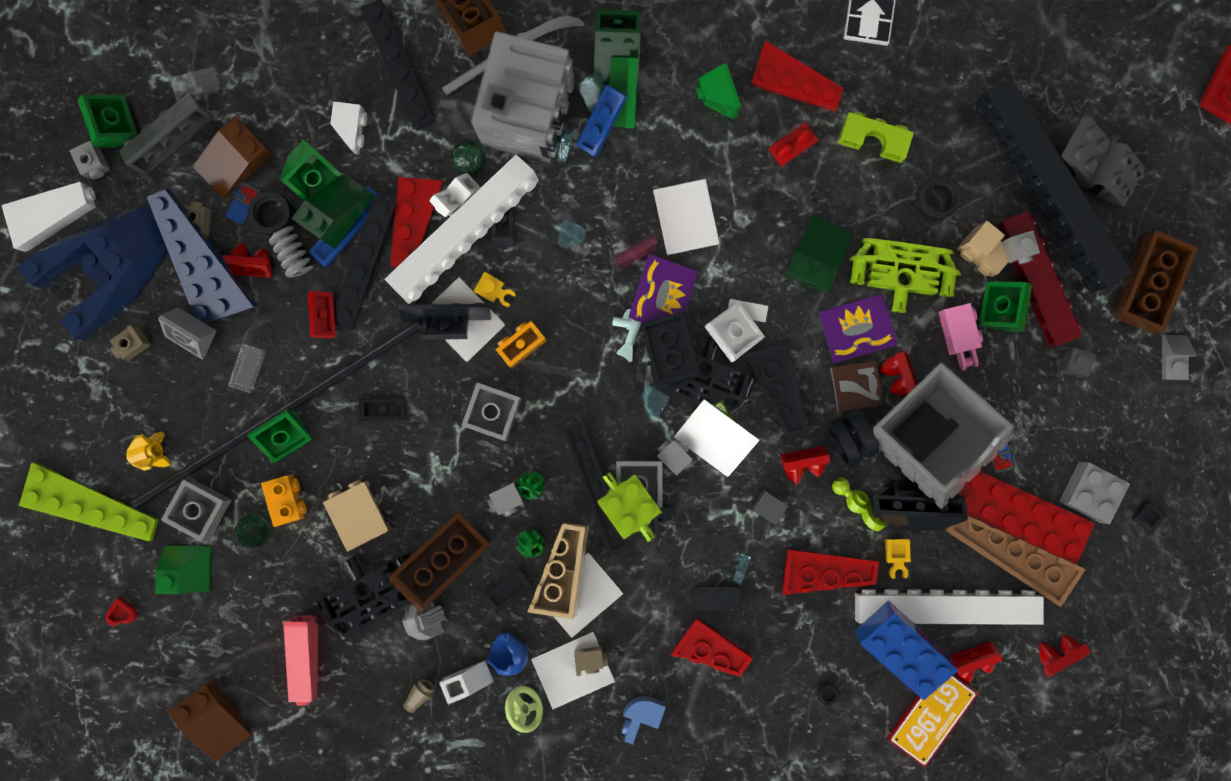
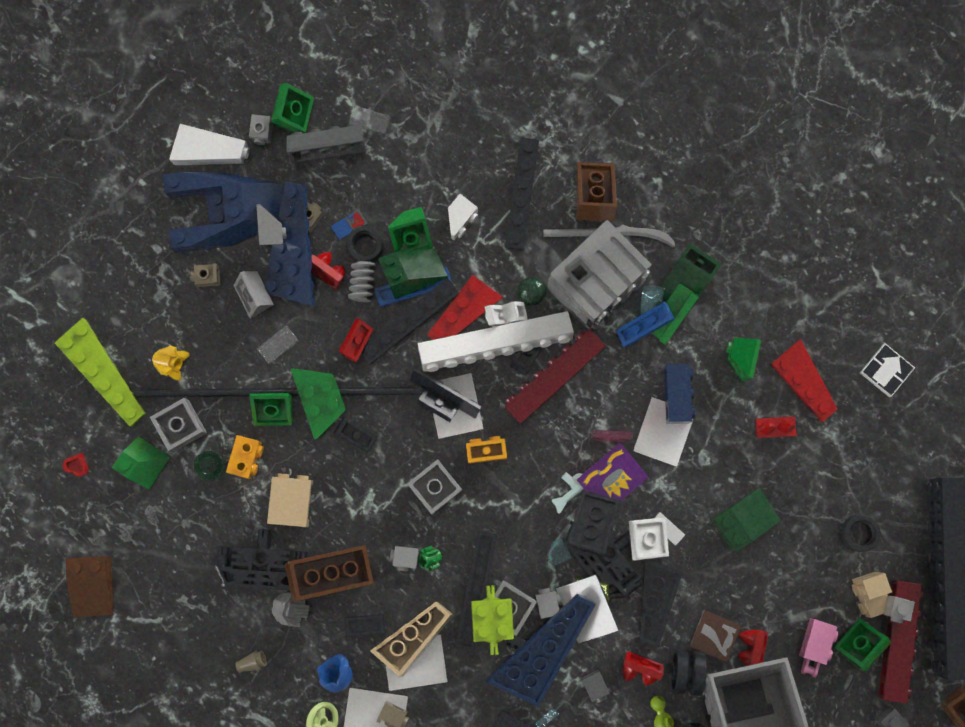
camera: 30 degrees right, 5 degrees down
(158, 254) = (269, 228): none -> light grey slope
(231, 157) = (361, 188): reddish brown slope -> none
(301, 658) = (185, 581): coral slope -> none
(321, 395) = (319, 398): none -> green wing
(466, 682) = (292, 674): white slope -> none
(491, 288) = (489, 396): yellow plate -> none
(530, 544) = (402, 601): green gear -> none
(544, 228) = (558, 373): none -> dark red brick
(563, 147) = (606, 326): clear light blue tile -> none
(570, 235) = (571, 392): clear light blue tile -> none
(677, 169) = (678, 393): none -> dark blue brick
(698, 522) = (537, 662): none -> dark blue wing
(858, 328) = (742, 593): dark purple sticker -> none
(894, 139) = (852, 470): lime arch -> none
(904, 255) = (810, 561): lime piece -> none

